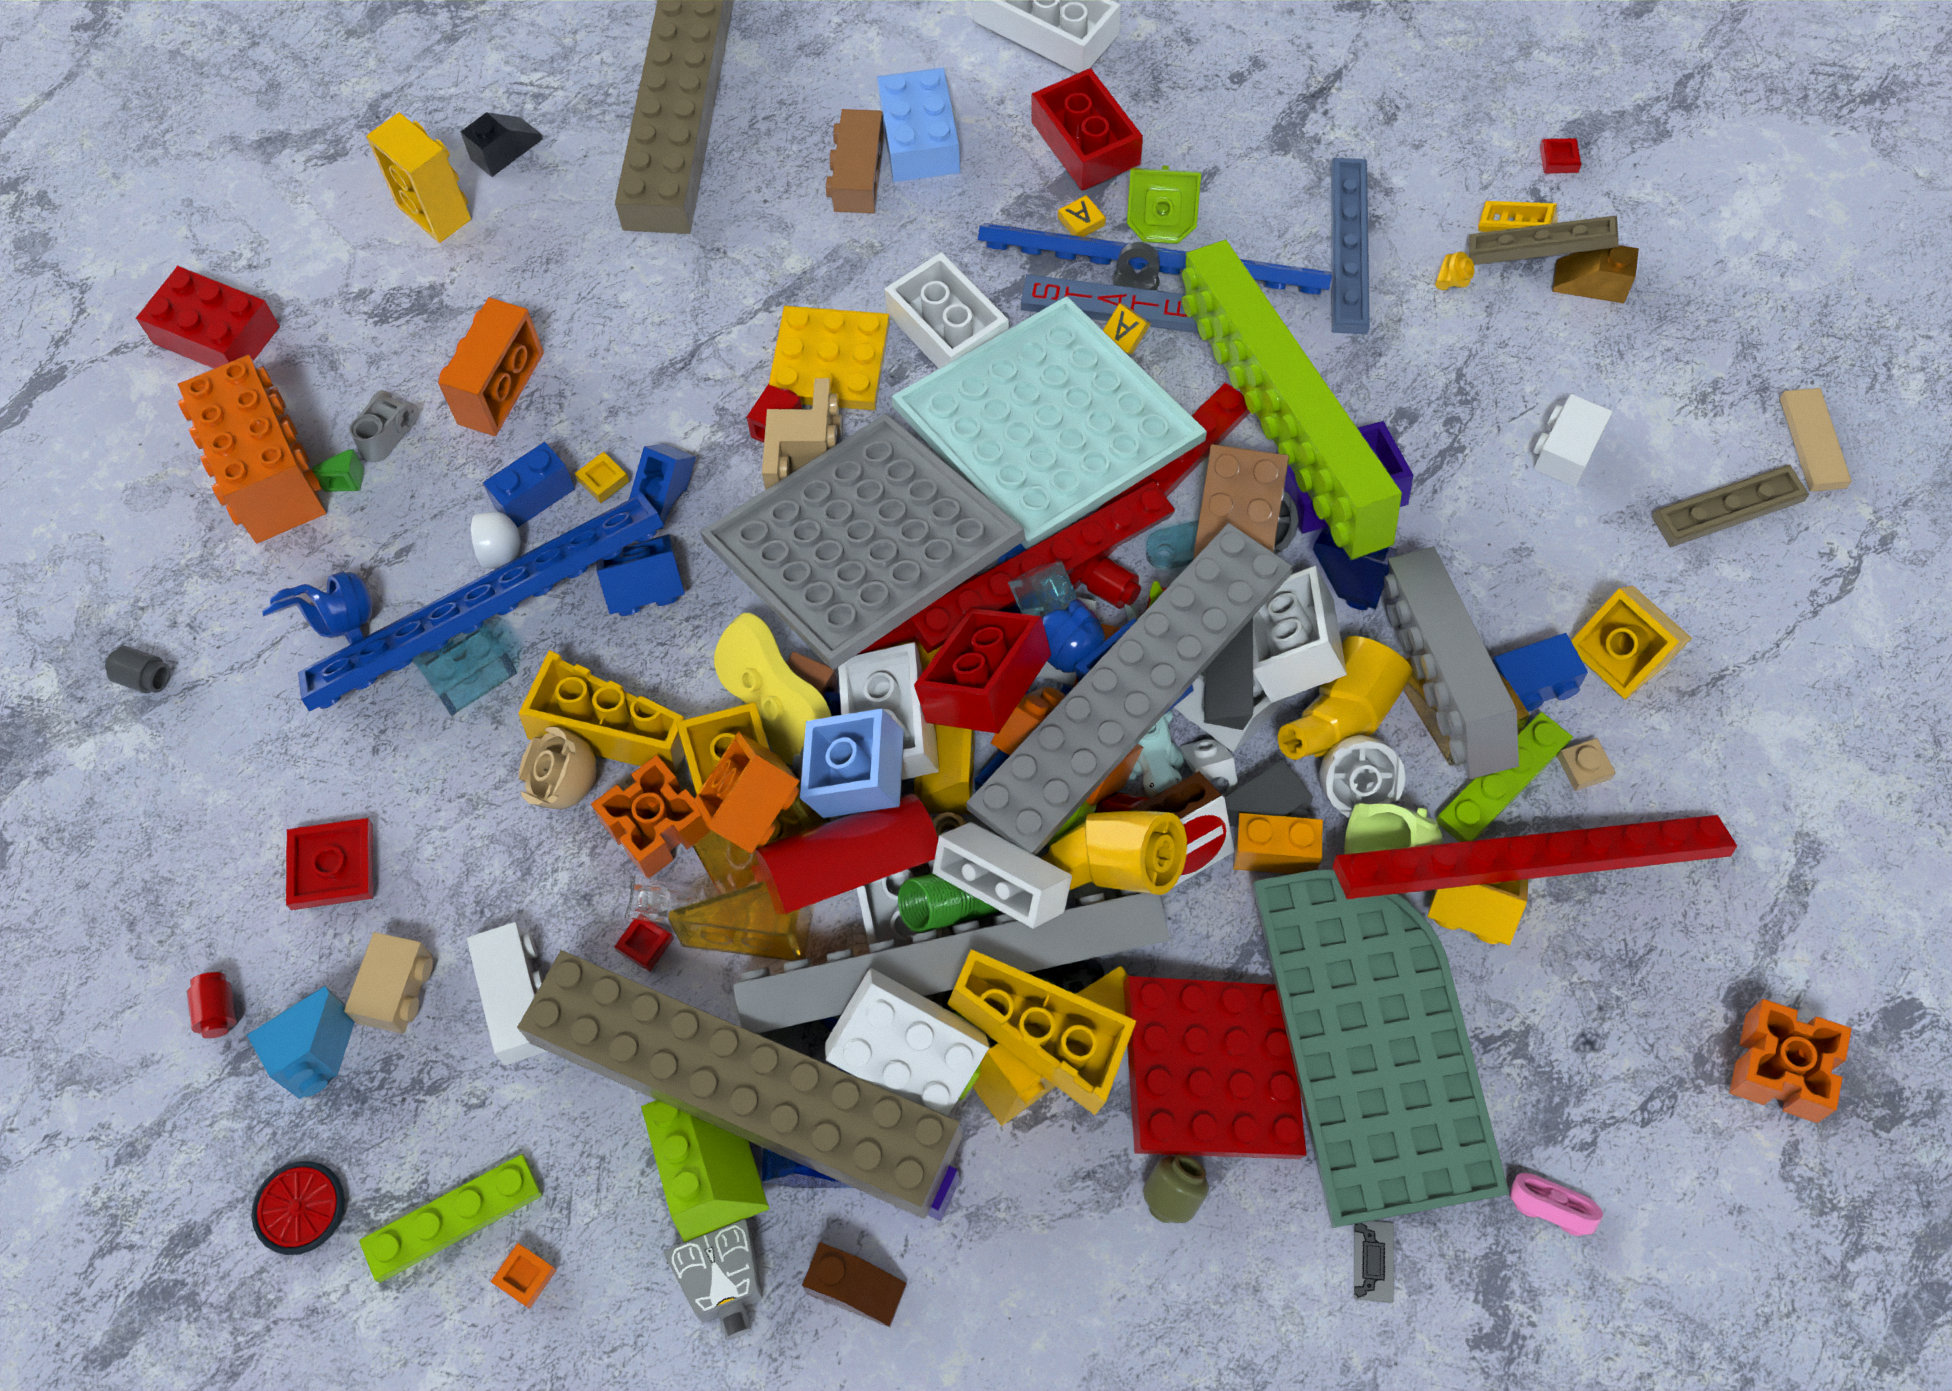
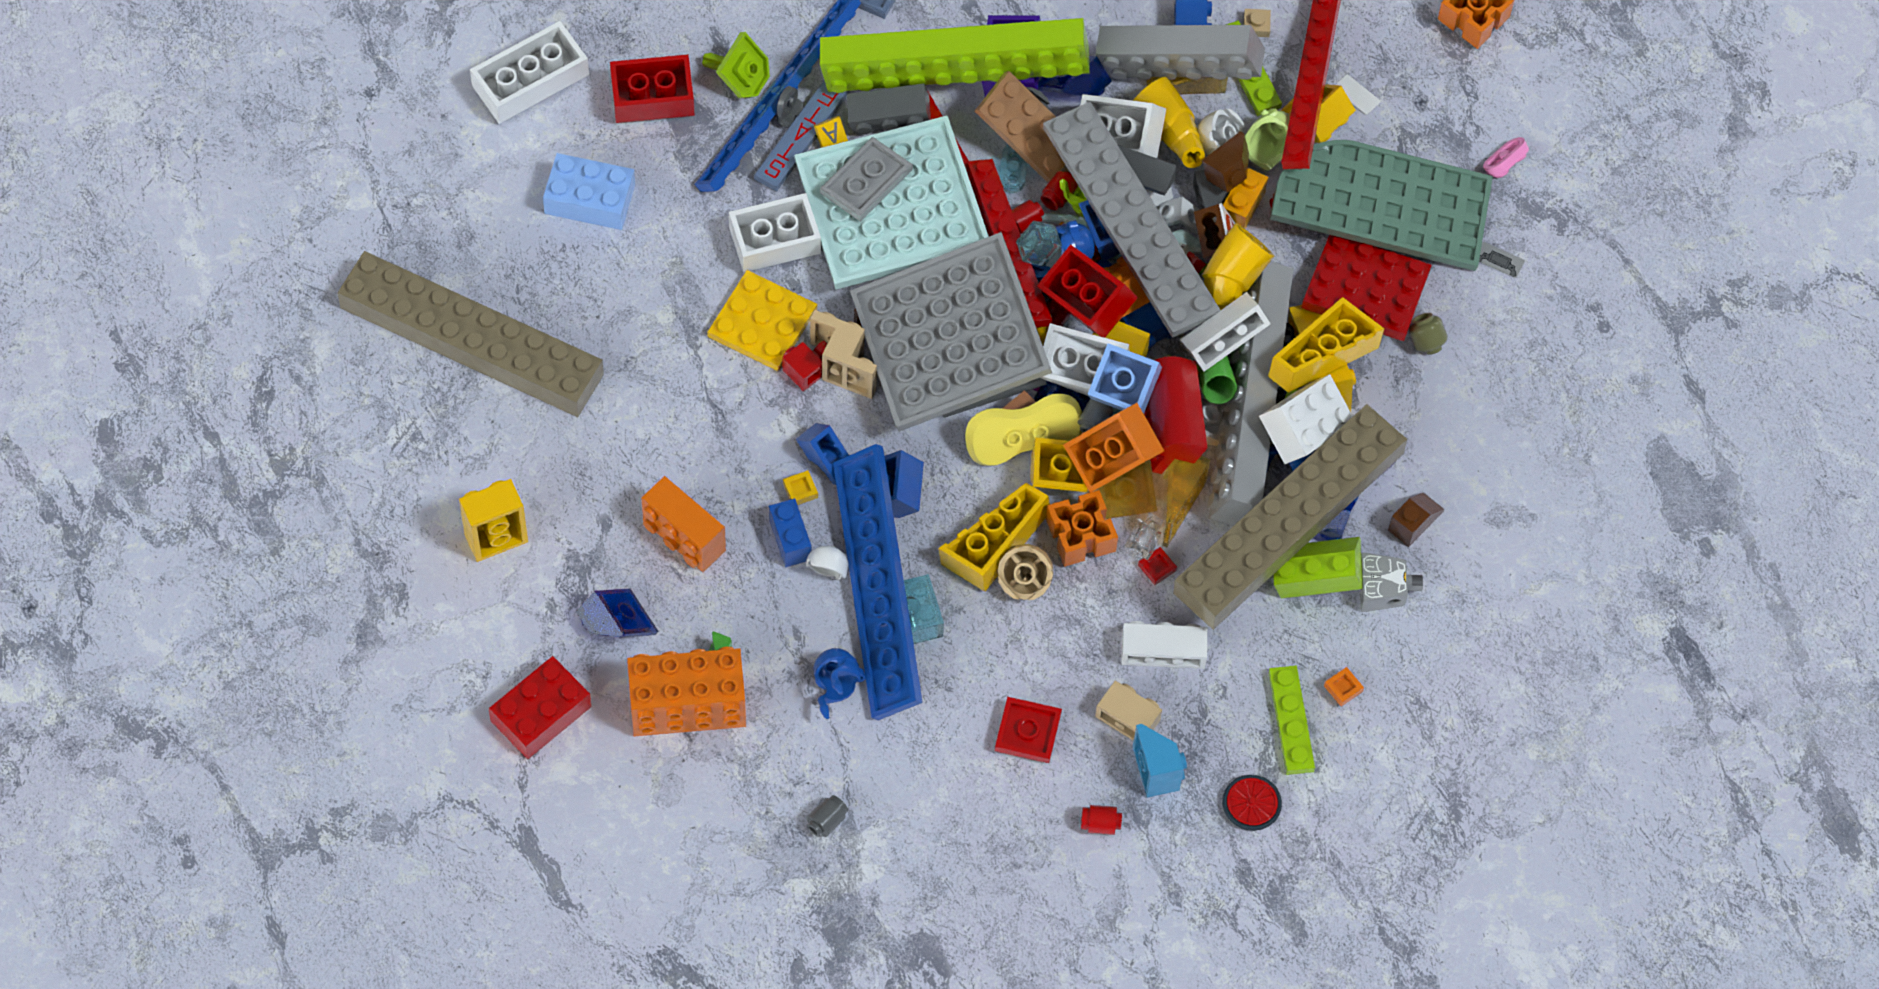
camera: 75 degrees left, 0 degrees up
(354, 354) = (615, 614): none -> clear blue slope
(382, 426) = (686, 611): light grey piece -> none
(498, 140) = (458, 470): black slope -> none
(856, 161) = (601, 242): medium nougat brick -> none
(1062, 375) = (866, 178): none -> light grey tile
(1081, 217) = (718, 124): yellow tile -> none
(1187, 370) = (888, 108): none -> dark grey brick
(1310, 793) = (1228, 163): none -> reddish brown slope
(1548, 944) = (1358, 95): none -> white sticker

